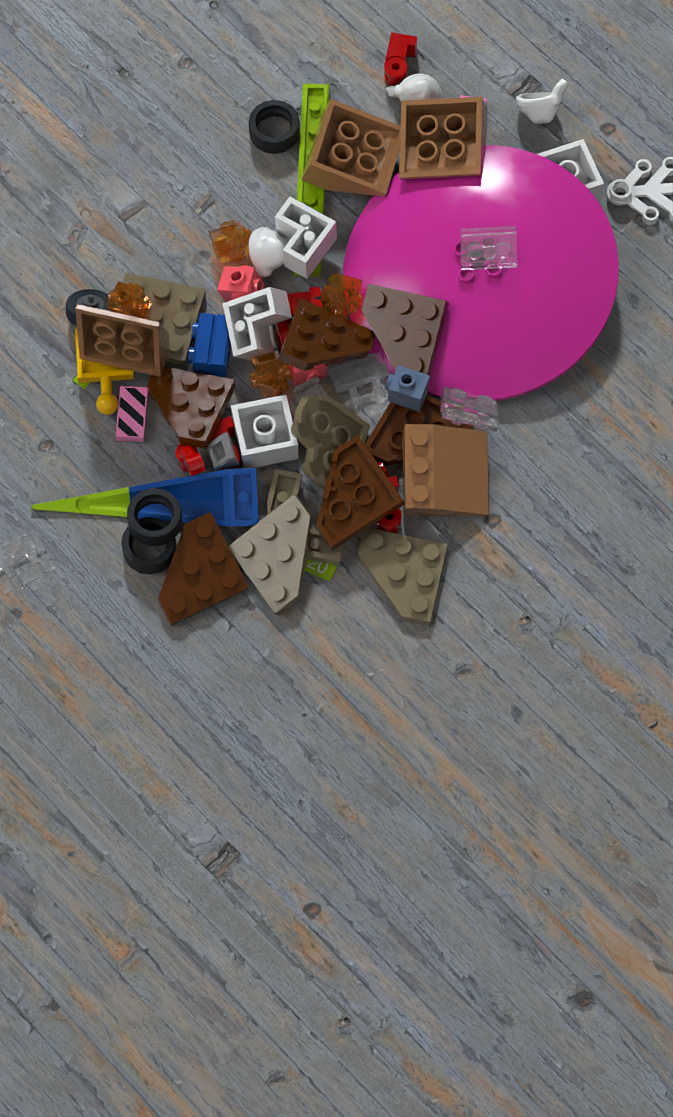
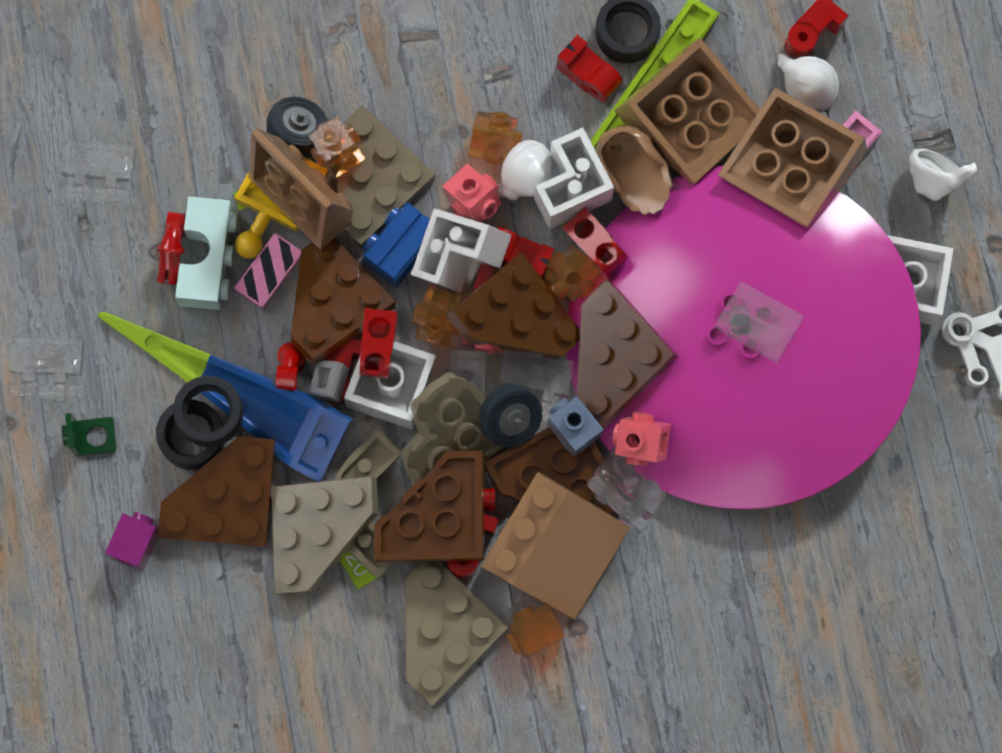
camera: 25 degrees right, 10 degrees up
(55, 434) = (171, 248): none -> red piece
(67, 587) = (75, 435): none -> dark green bracket
(73, 404) = (205, 283): none -> light aqua arch
(155, 634) = (133, 540): none -> magenta brick
(242, 403) = (377, 342): none -> red leg
(265, 167) = (588, 70): none -> red leg
(342, 204) = (635, 168): none -> medium nougat hair
(344, 264) = (595, 241): none -> red leg
(361, 406) = (510, 415): none -> black wheel
(467, 534) = (534, 631): none -> clear orange brick
(469, 368) = (641, 439): none -> coral brick

